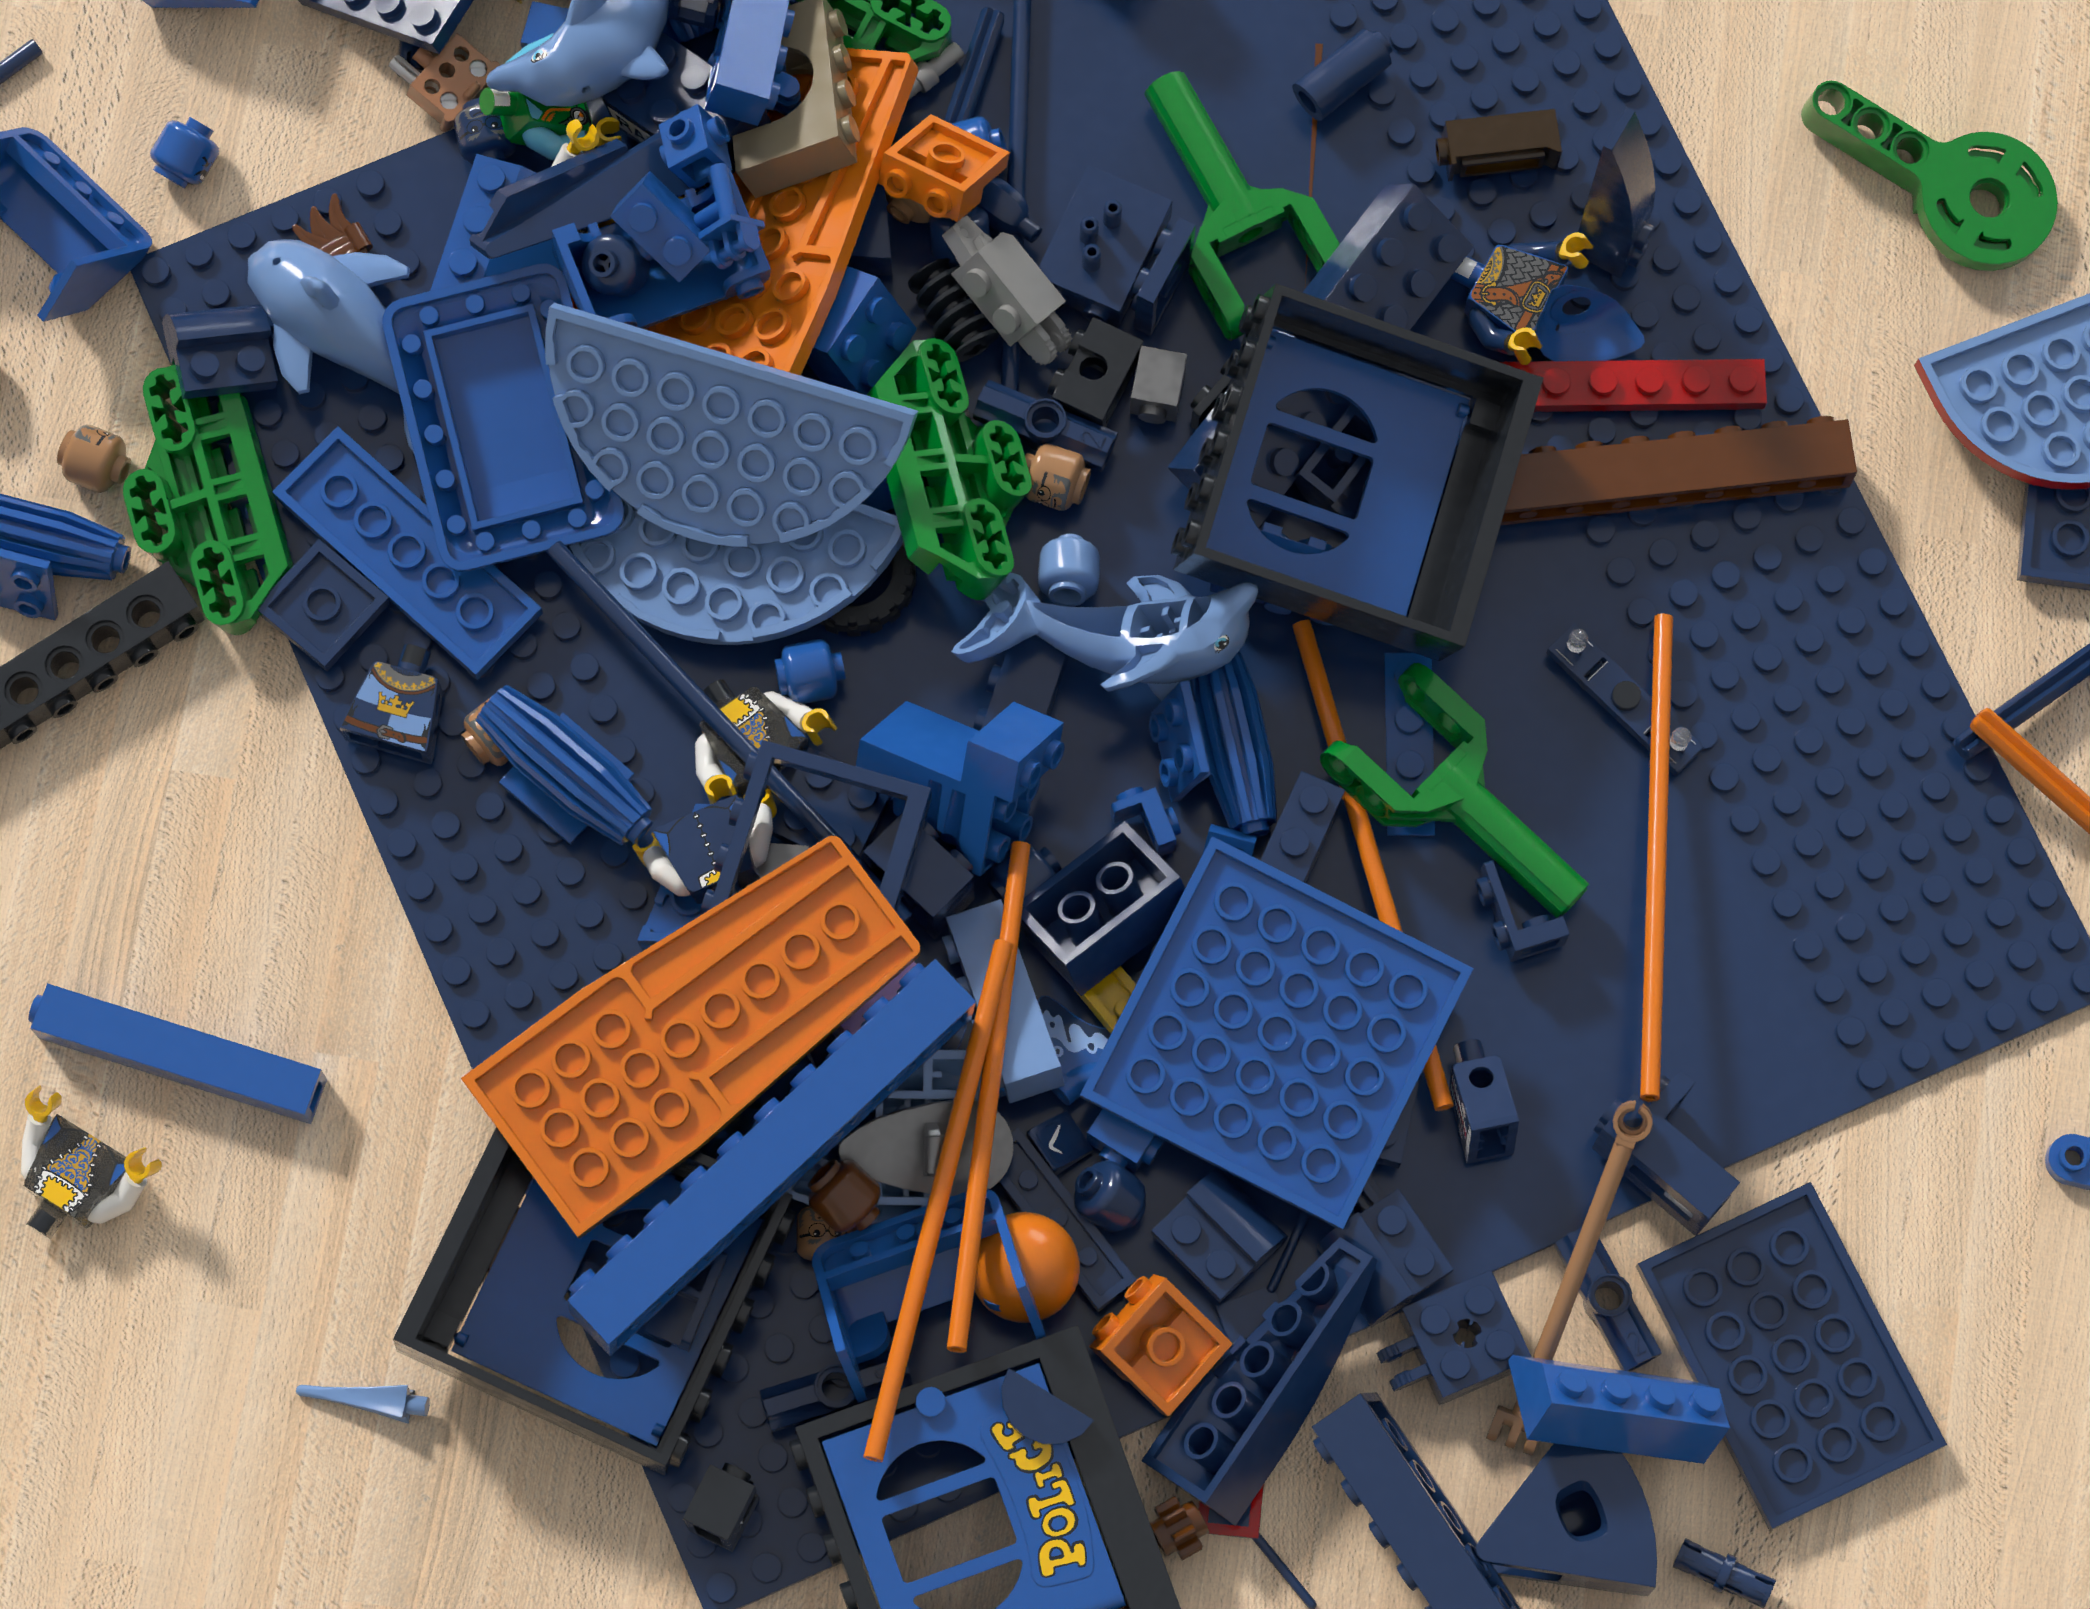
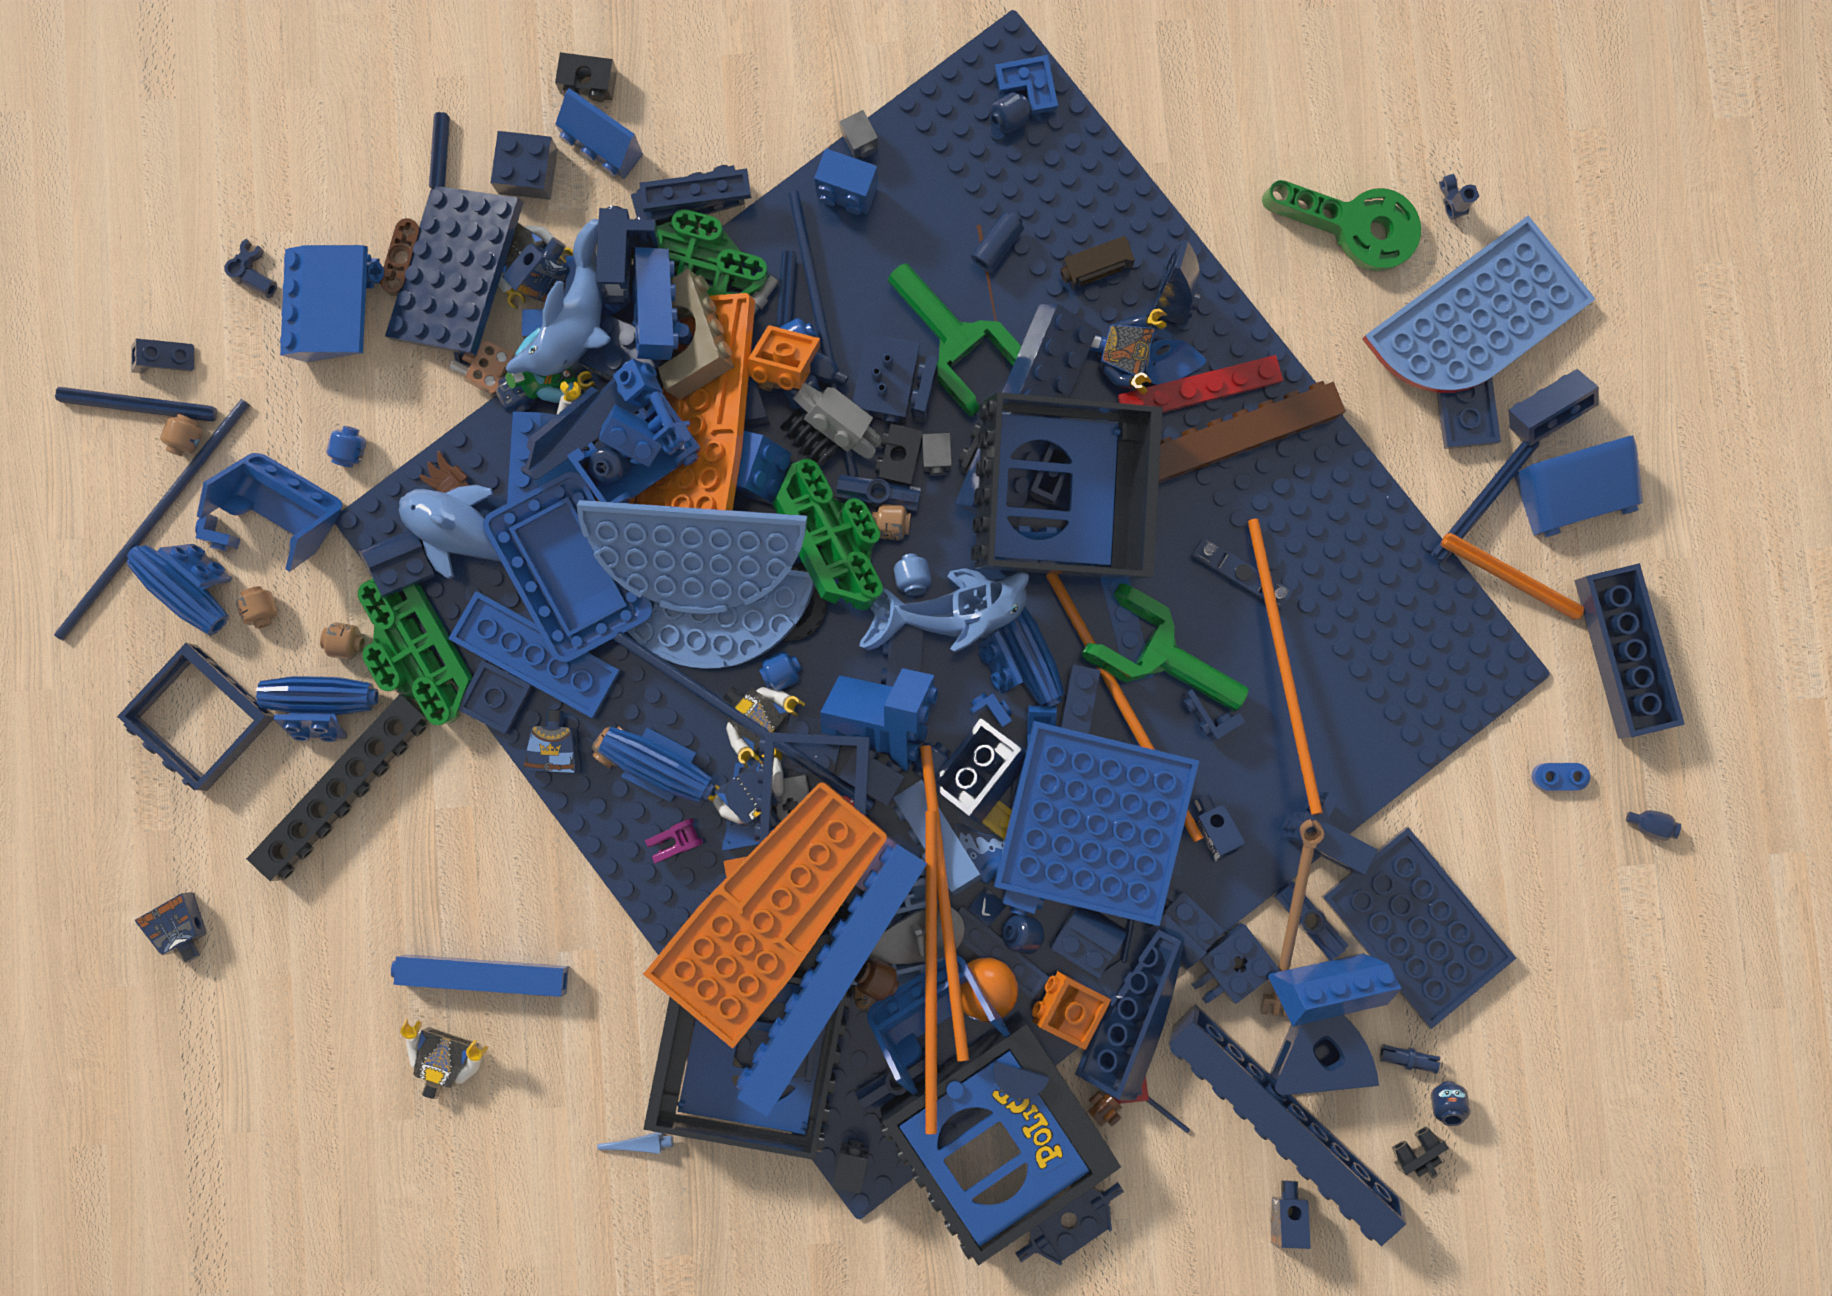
camera: 10 degrees left, 10 degrees up
(573, 915) = (685, 838): none -> magenta piece

